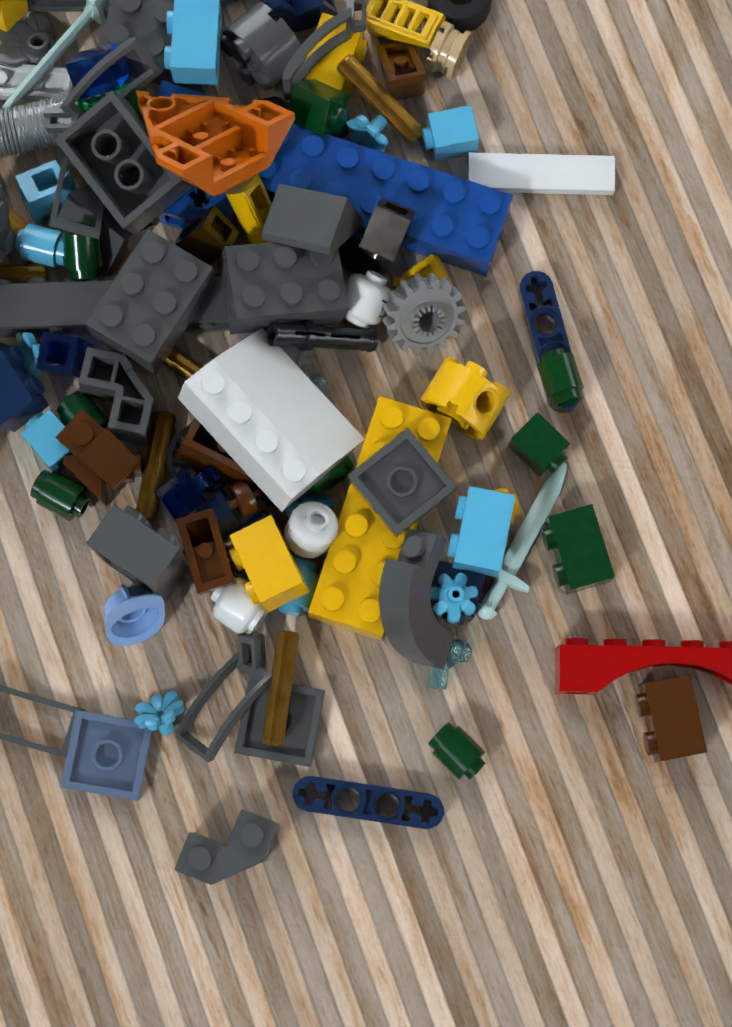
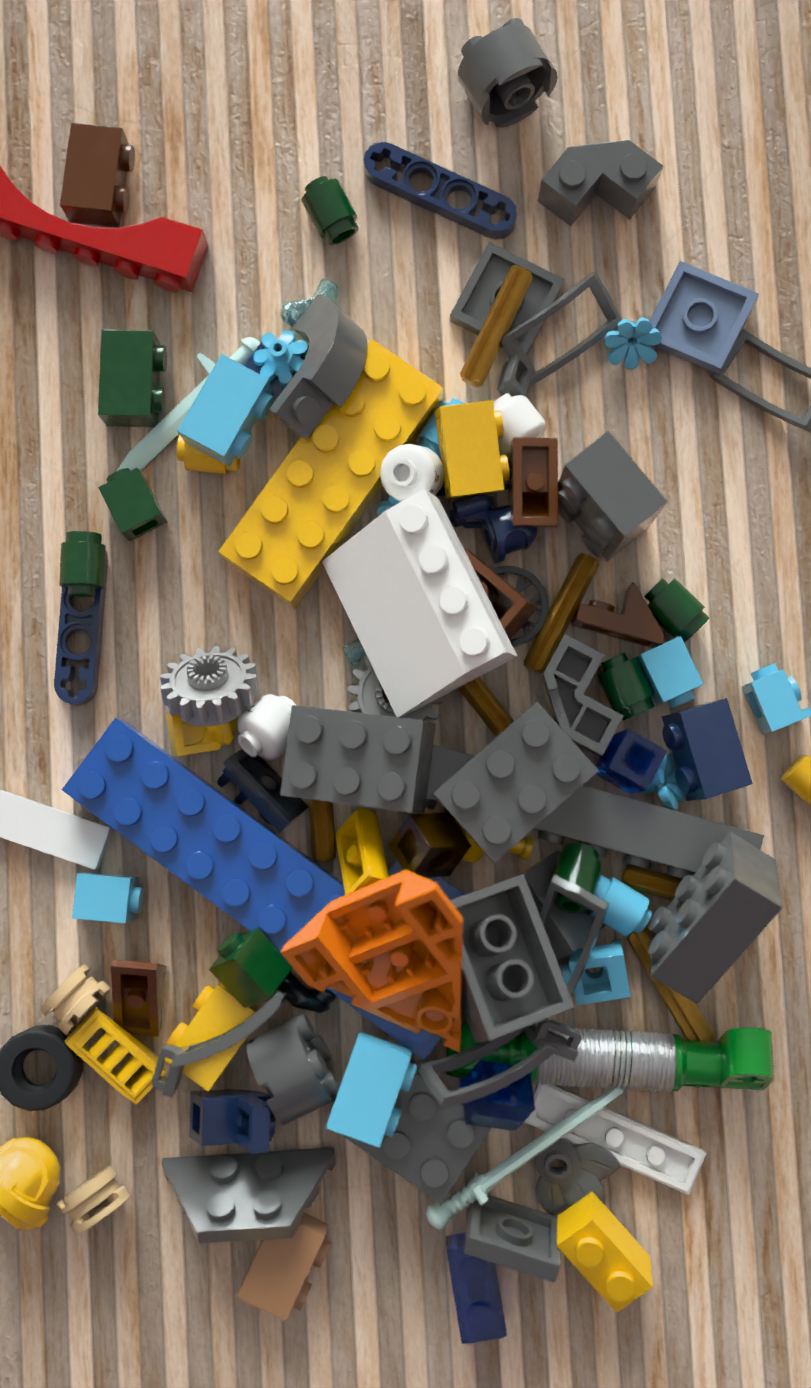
camera: 155 degrees left, 5 degrees up
(98, 449) = (622, 636): reddish brown slope -> none
(133, 615) = (644, 447): light blue piece -> none
(184, 494) = (538, 561): clear blue plate -> none
(244, 499) = (476, 531): reddish brown piece -> none
(310, 219) = (305, 816): dark grey slope -> none
(310, 336) = (347, 694): black pin -> none
(339, 919) = (505, 73): none -> dark grey brick
(368, 131) = (200, 925): medium azure plant -> none
(379, 99) = (175, 962): pearl gold axle -> none
(387, 230) = (217, 783): dark brown brick -> none
(402, 482) = (296, 489): dark grey tile -> none
(465, 397) = (196, 574): yellow brick -> none

